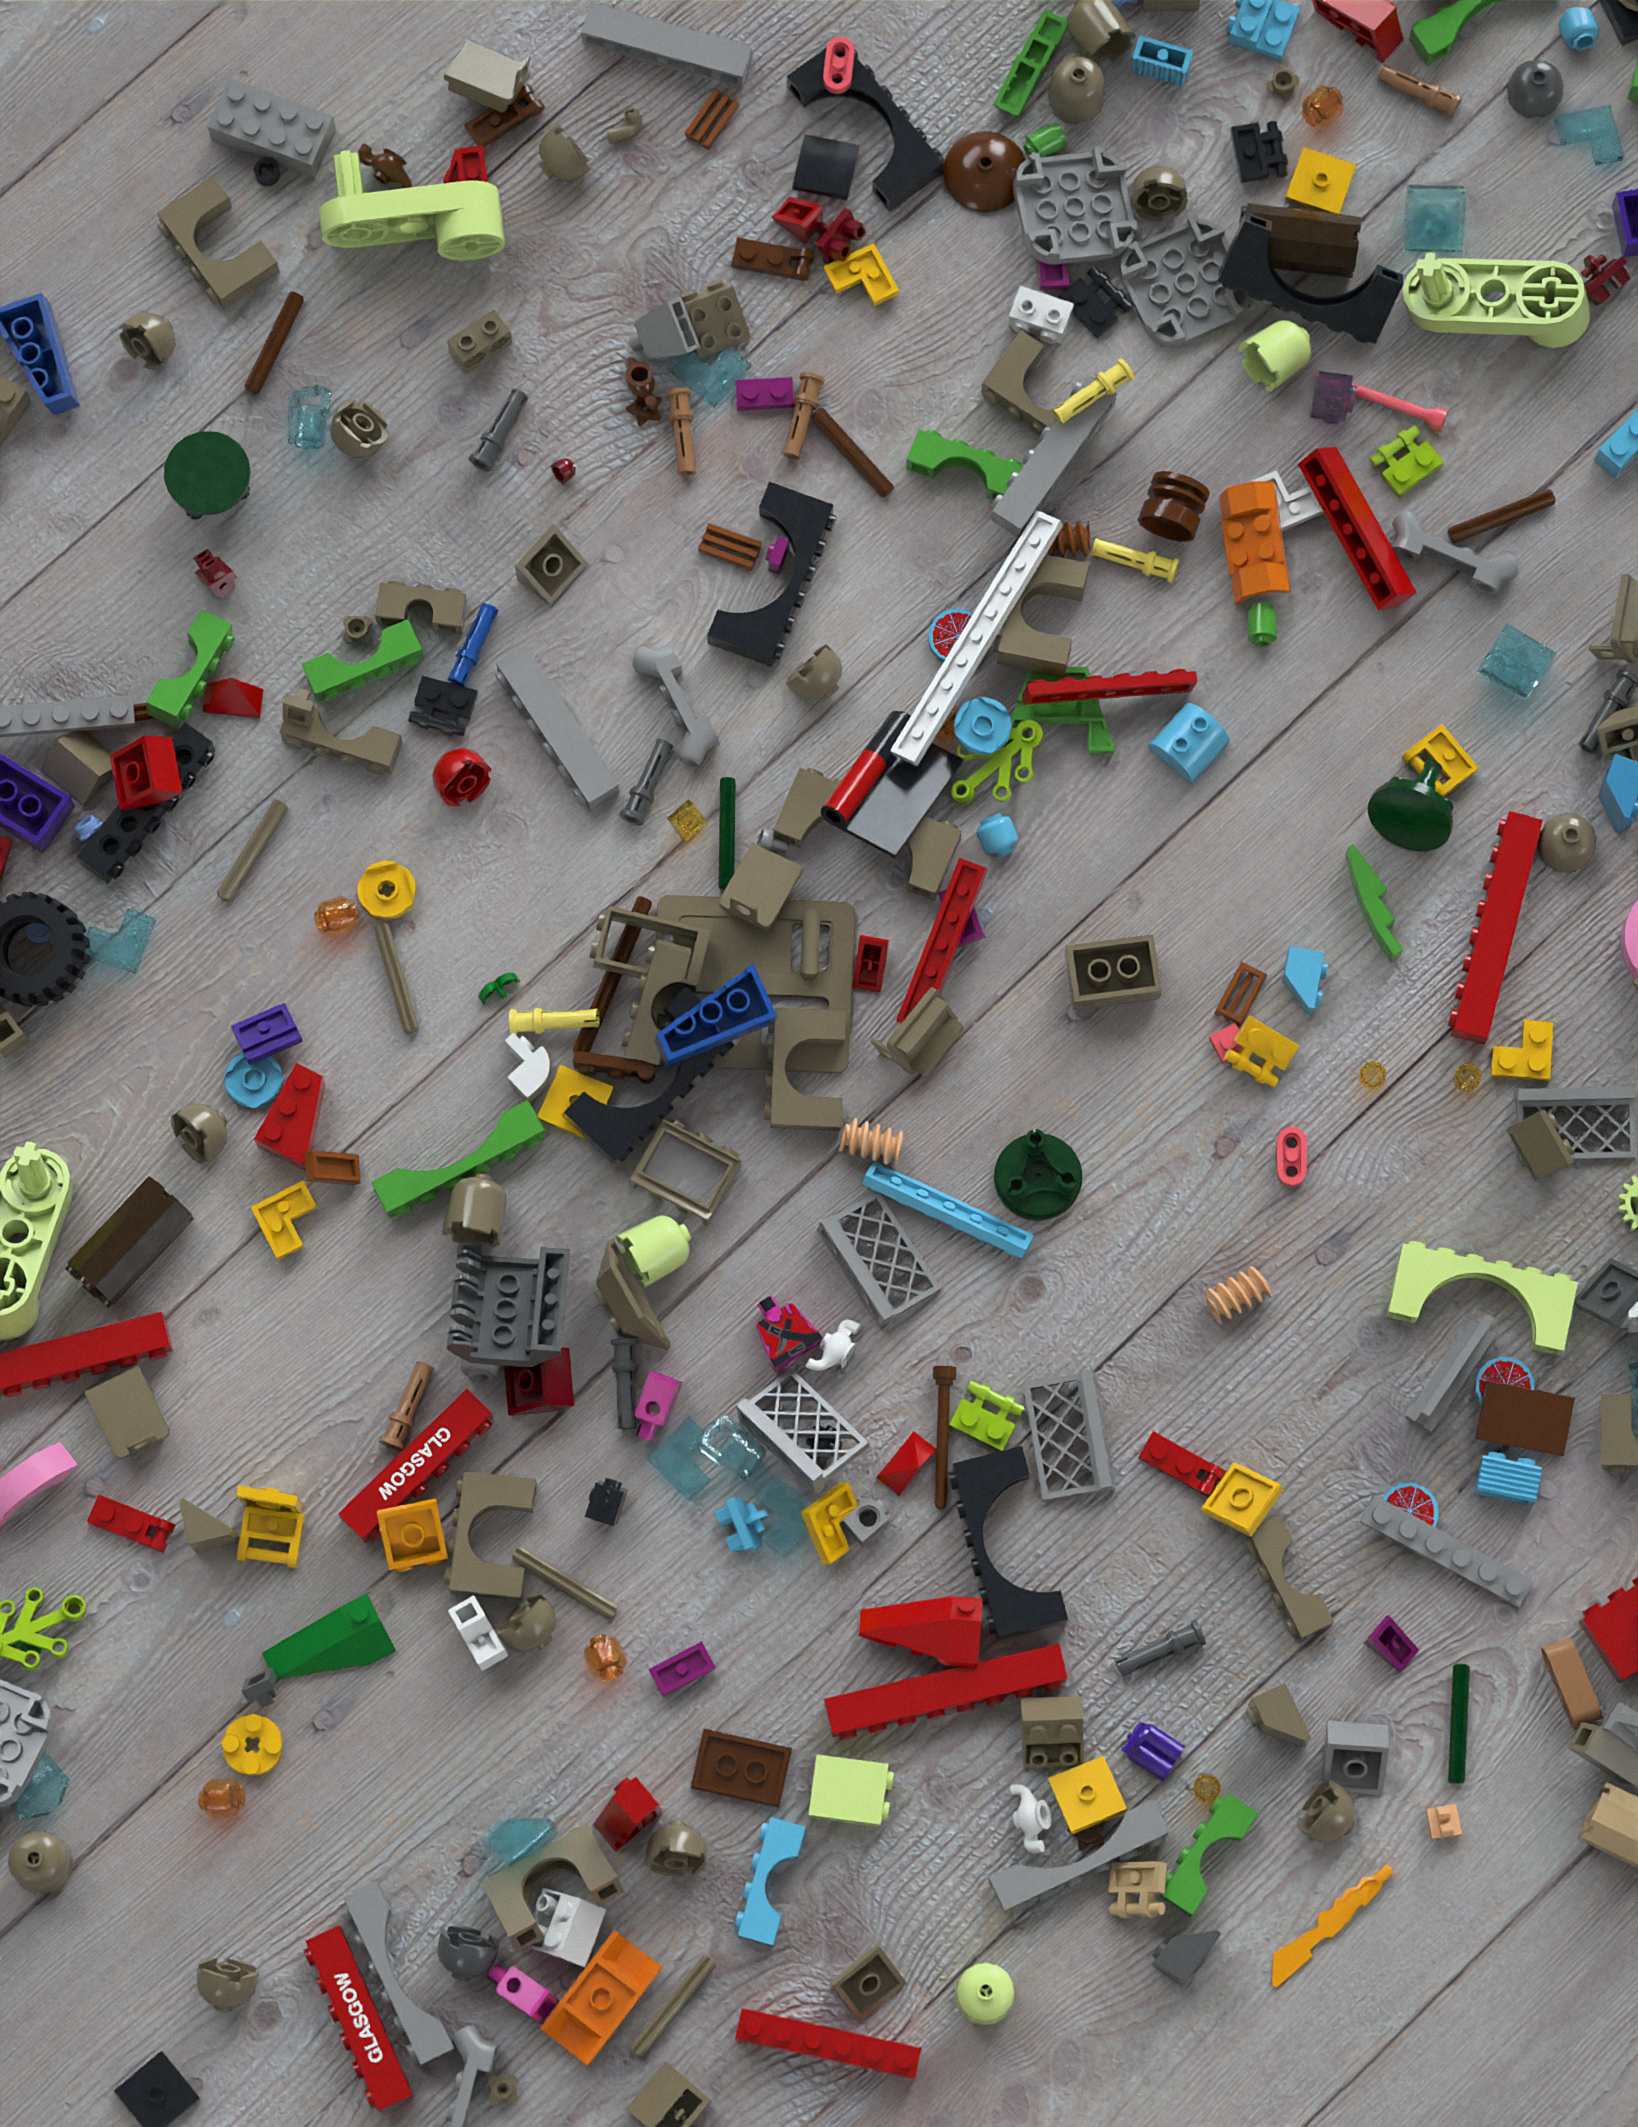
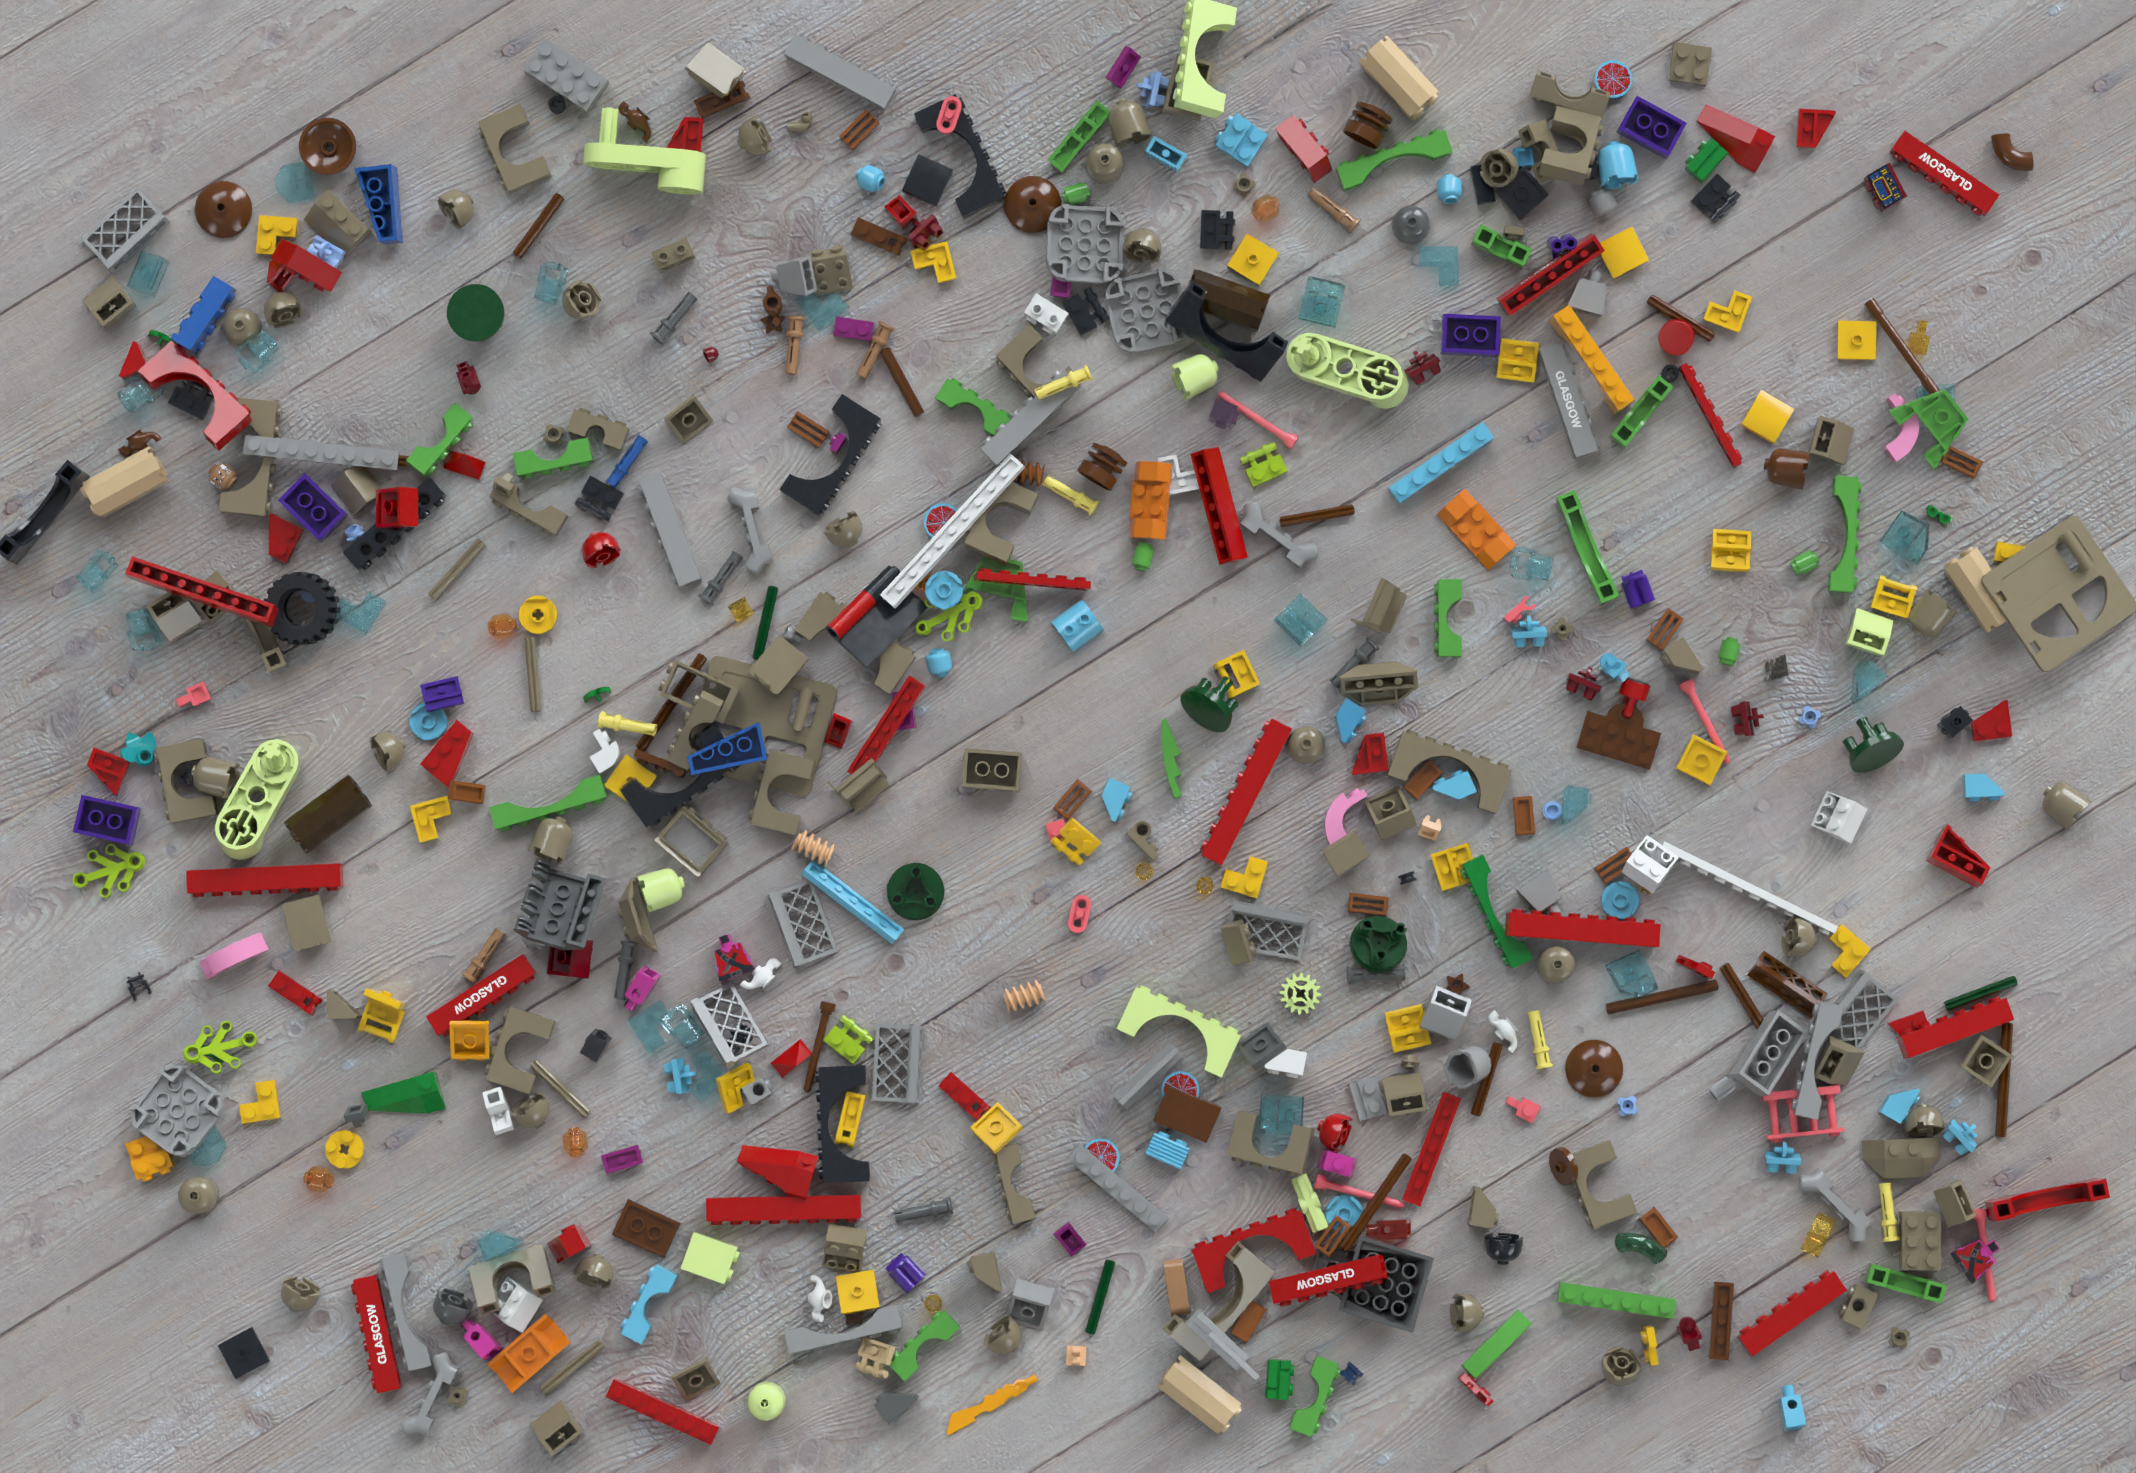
camera: 15 degrees right, 10 degrees up
(119, 1707) = (267, 1104): none -> yellow plate
(743, 180) = (870, 178): none -> medium azure head
(1016, 1533) = (850, 1118): none -> yellow plate
(1372, 1039) = (1149, 848): none -> dark tan plate

